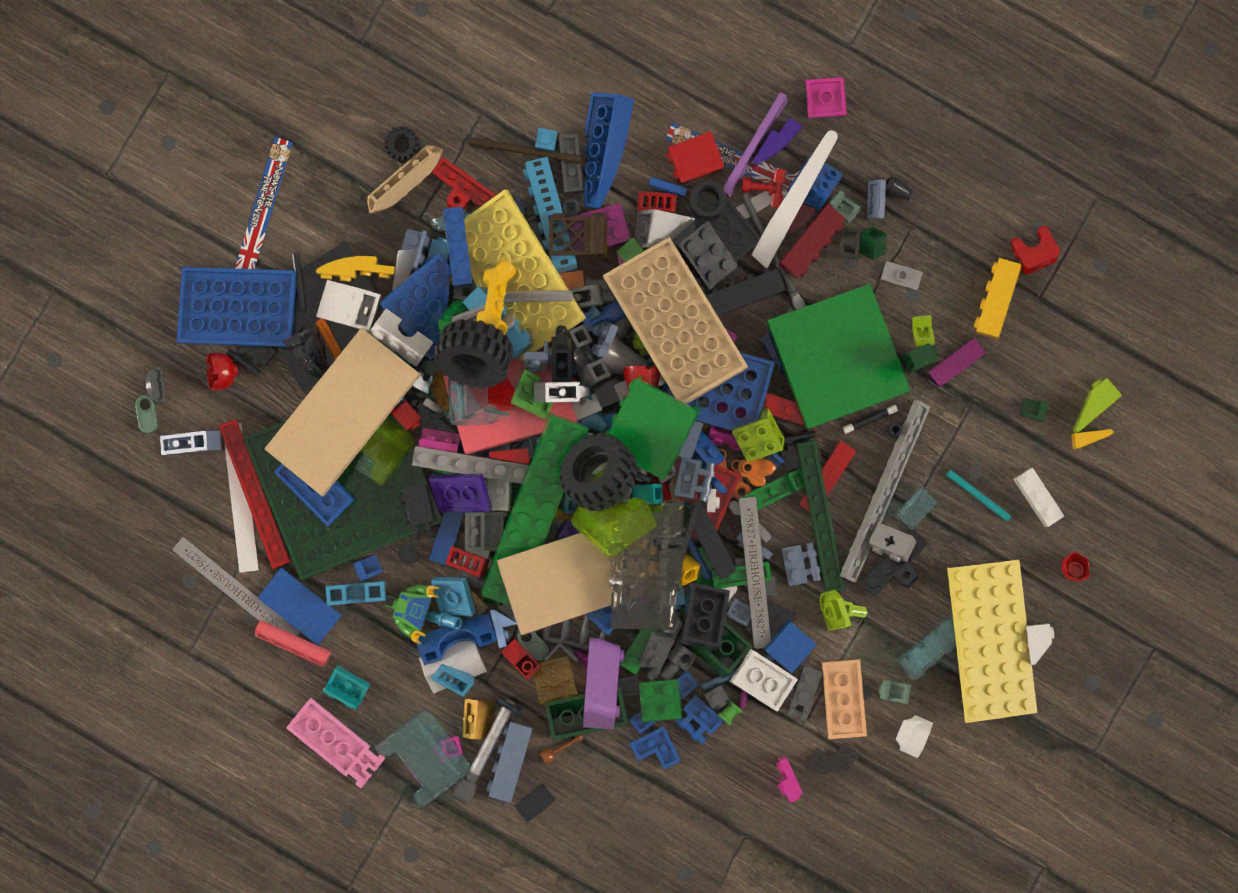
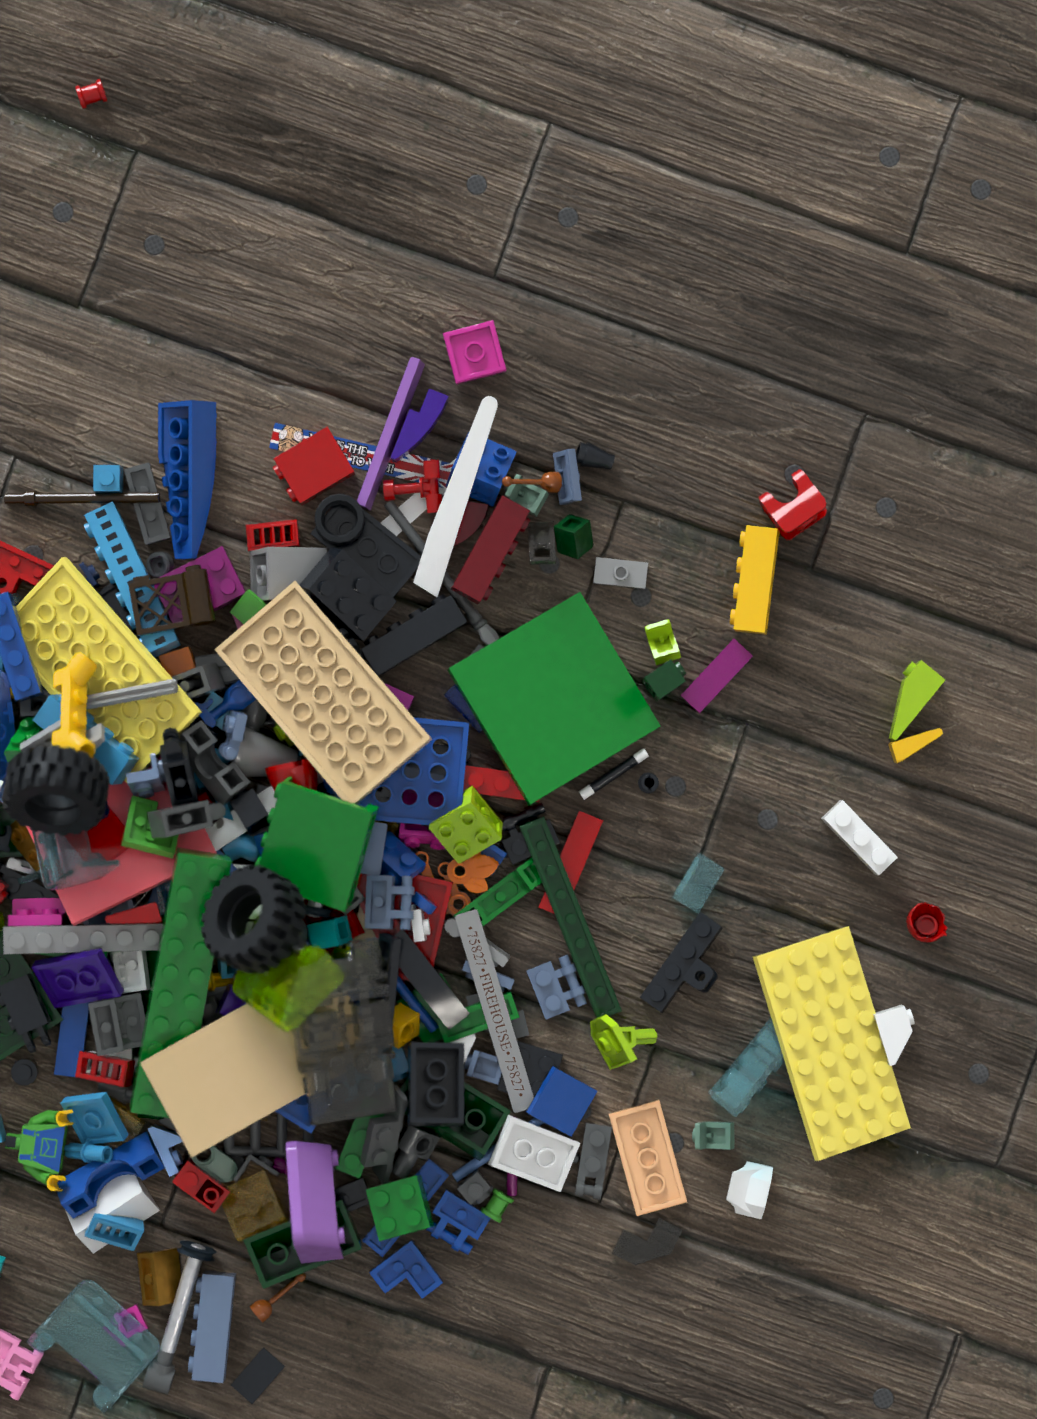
camera: 10 degrees left, 0 degrees up
(667, 187) = (283, 512): blue tile -> none
(788, 784) = (592, 1286): dark pink plate -> none
(862, 200) = (550, 481): none -> dark orange hinge
(884, 535) = (661, 928): light grey brick -> none
(885, 489) = (651, 867): light grey plate -> none
(978, 495) = (778, 849): teal bar -> none
(1034, 409) = (831, 720): dark green panel -> none

